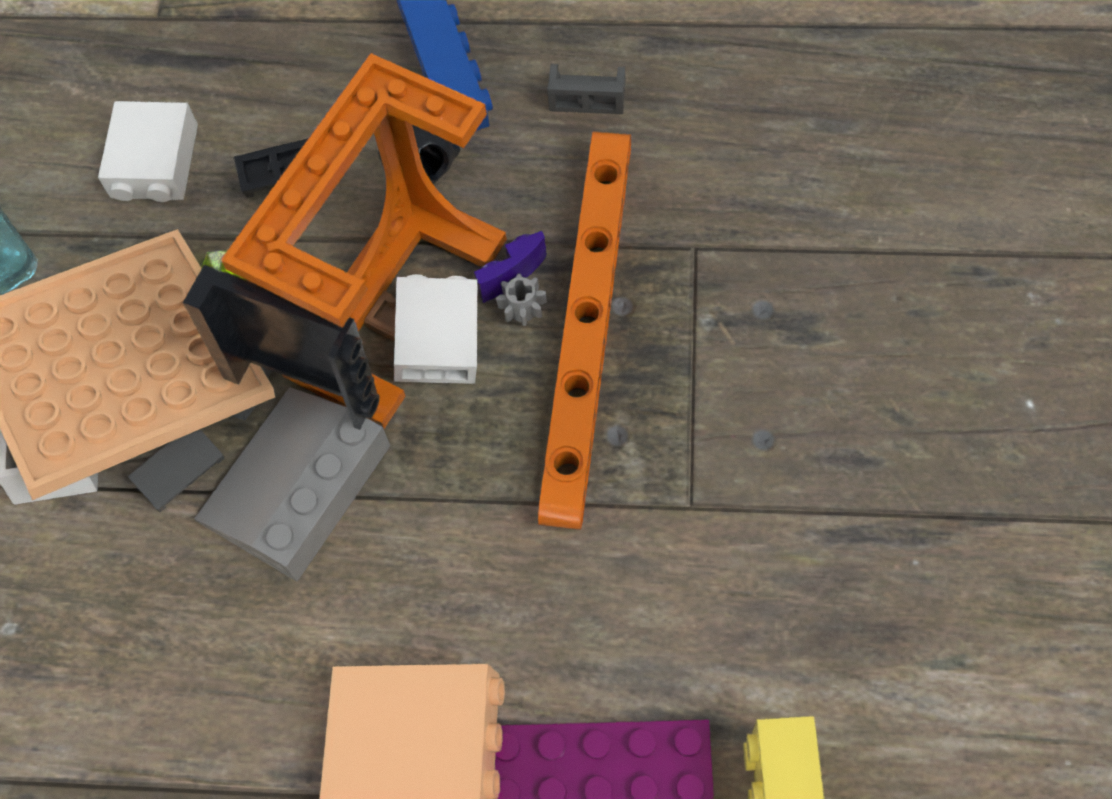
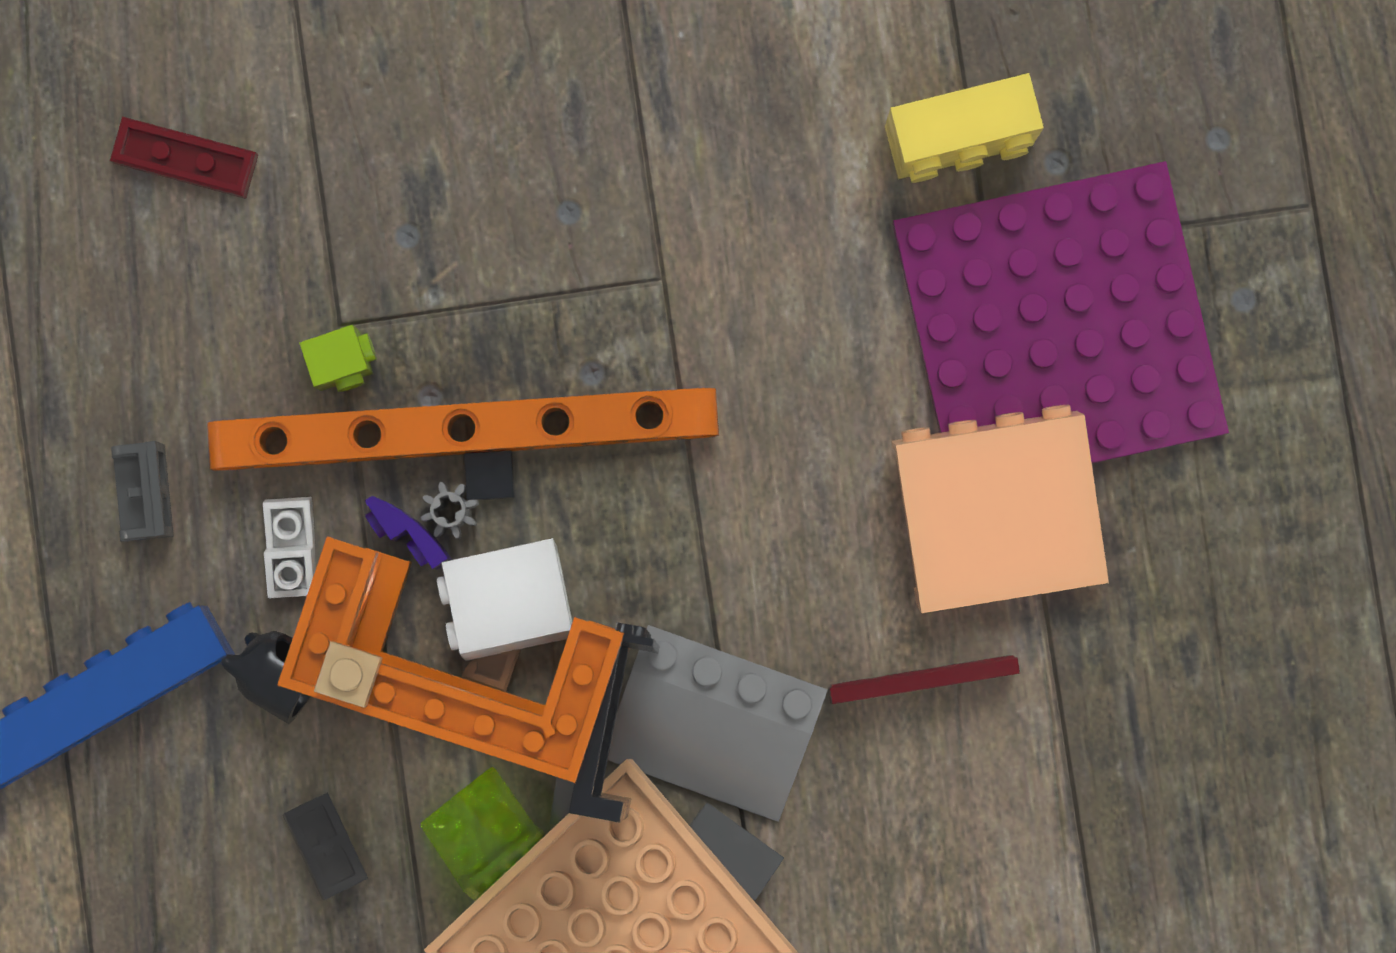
camera: 100 degrees left, 20 degrees up
(276, 664) = (923, 679): none -> dark red tile
(362, 99) = (348, 674): none -> tan plate
(519, 186) = (289, 545): none -> white slope
(543, 337) = (489, 475): none -> black tile
(665, 235) = (339, 358): none -> lime brick
(853, 155) = (184, 157): none -> dark red tile

